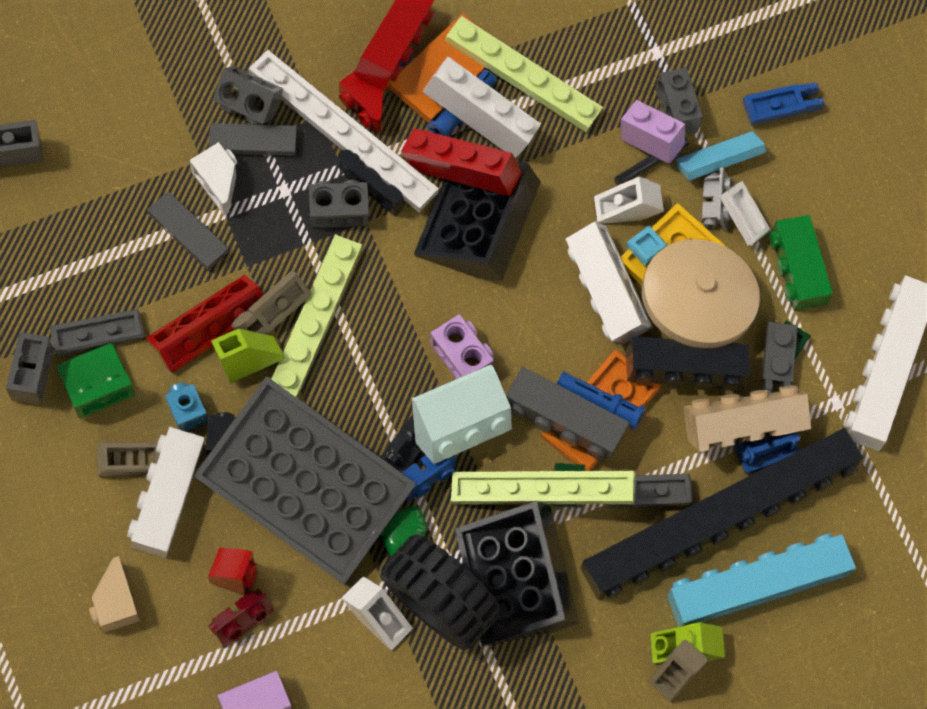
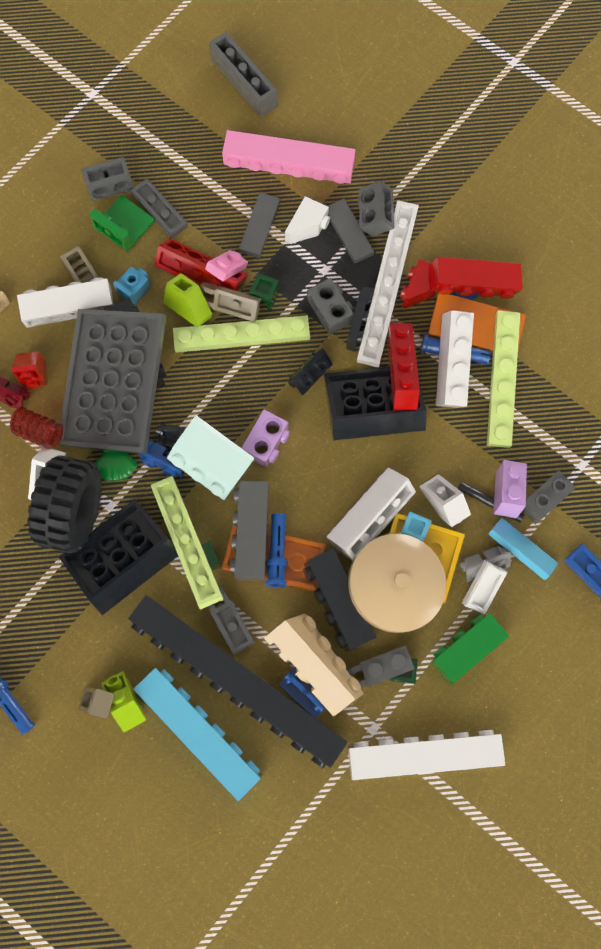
camera: 70 degrees right, 5 degrees up
(121, 155) = (288, 157): none -> bright pink brick
(226, 288) = (226, 265): none -> bright pink plate
(281, 260) = (266, 289): none -> dark green panel
(315, 596) = (36, 428): none -> clear red piece
(400, 253) = (313, 369): none -> black hinge

